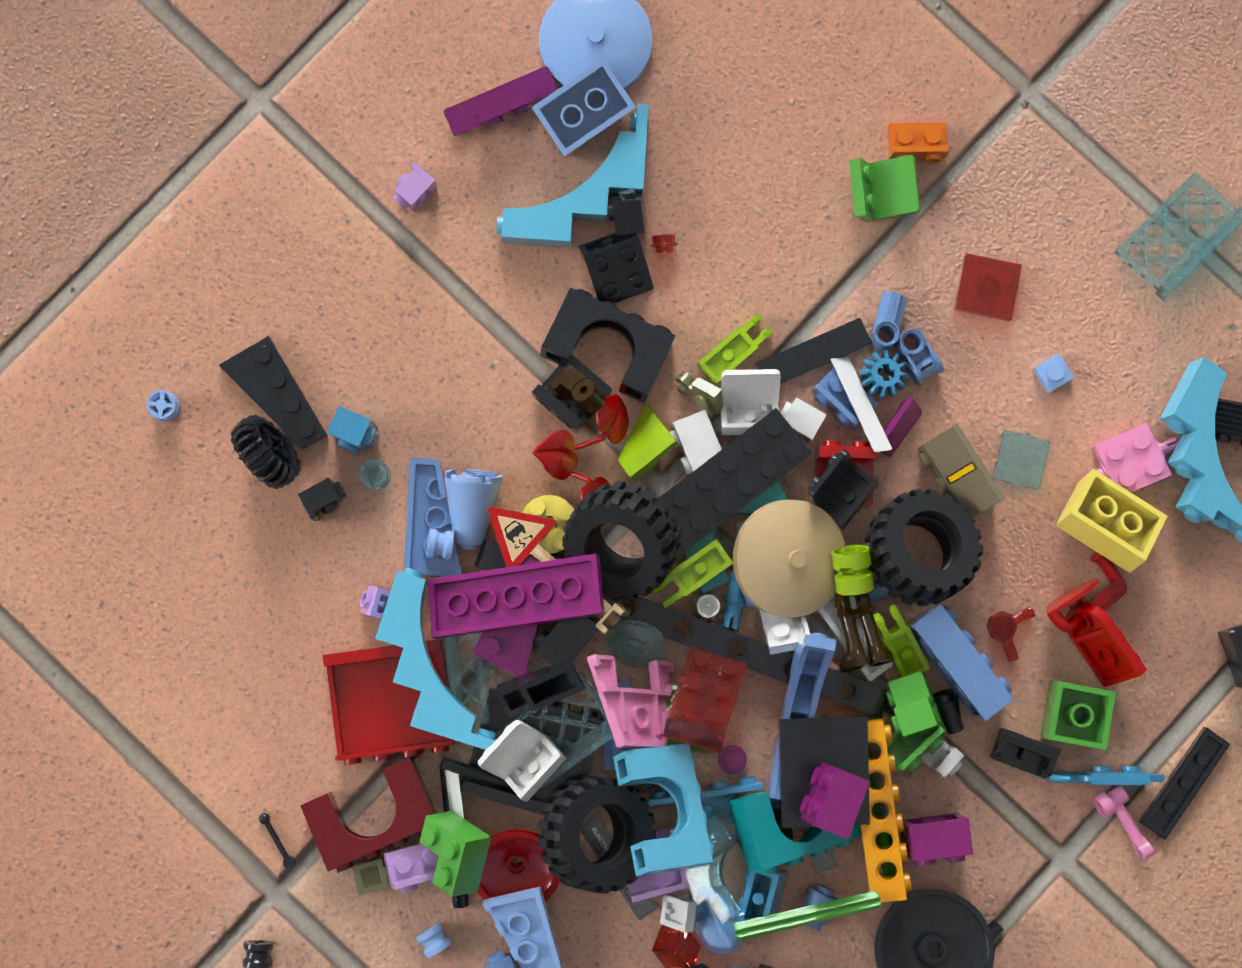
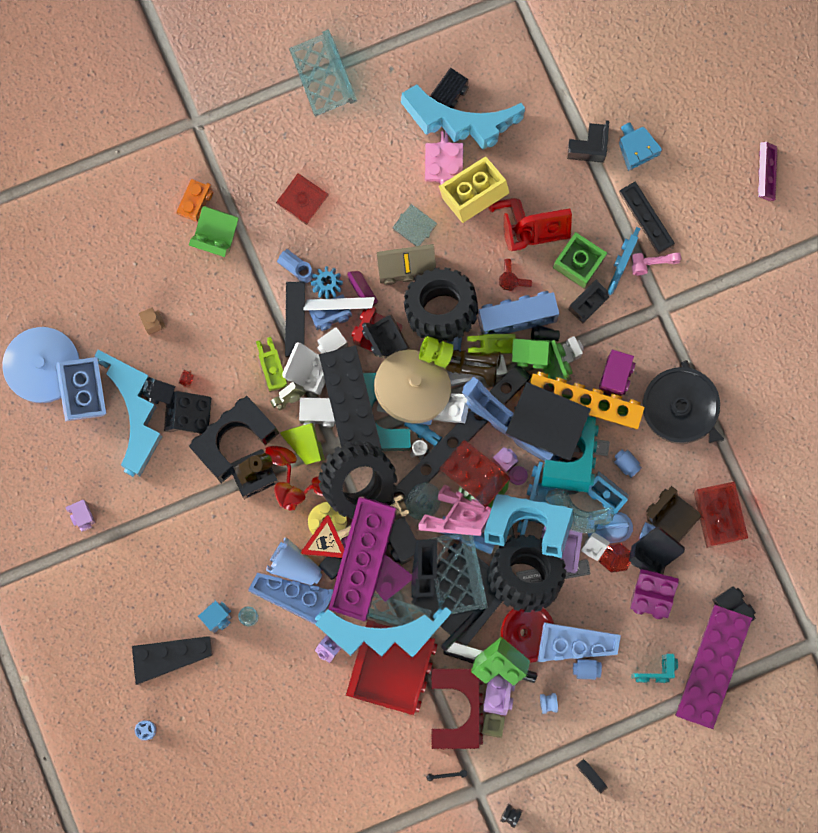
camera: 60 degrees left, 5 degrees down
(265, 451) = (204, 675): black gear -> none
(322, 498) = (248, 654): black brick -> none
(440, 544) = (309, 593): light blue wheel -> none
(500, 101) = (52, 439): magenta bracket -> none
(522, 758) = (462, 597): white bracket -> none
(696, 571) = (396, 444): lime hinge -> none
(722, 160) = (152, 320): none -> medium nougat brick
(745, 732) = (505, 459): none -> lavender brick
(807, 915) = (628, 469): bright green axle -> none
(834, 800) = (566, 421): magenta brick -> none
(918, 358) = (326, 257): medium blue piece -> none
(1053, 373) = (371, 184): light blue plate -> none

